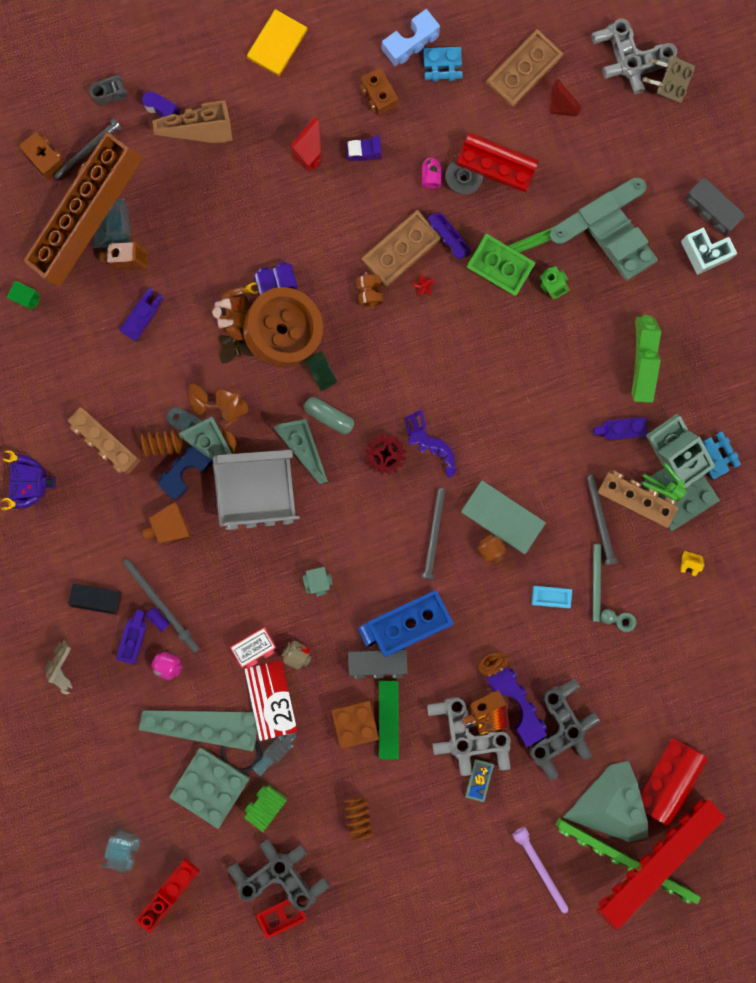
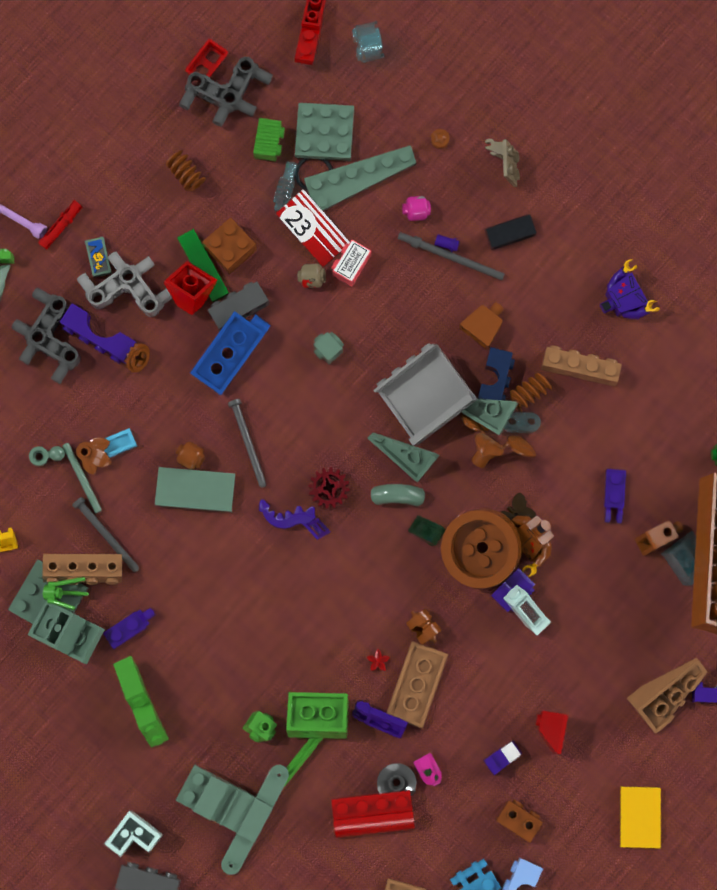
camera: 160 degrees right, 5 degrees down
(108, 722) = (440, 138): none -> dark orange tile
(132, 638) = (459, 216): dark purple hinge -> none
(274, 254) = (526, 610): none -> light aqua window
(411, 704) = (190, 287): none -> red slope
(488, 714) = (120, 311): dark orange torso -> none
(500, 829) = (63, 221): none -> red pin
(574, 595) = (96, 455): none -> dark orange plate
(720, 462) = (34, 647): dark azure plate -> none

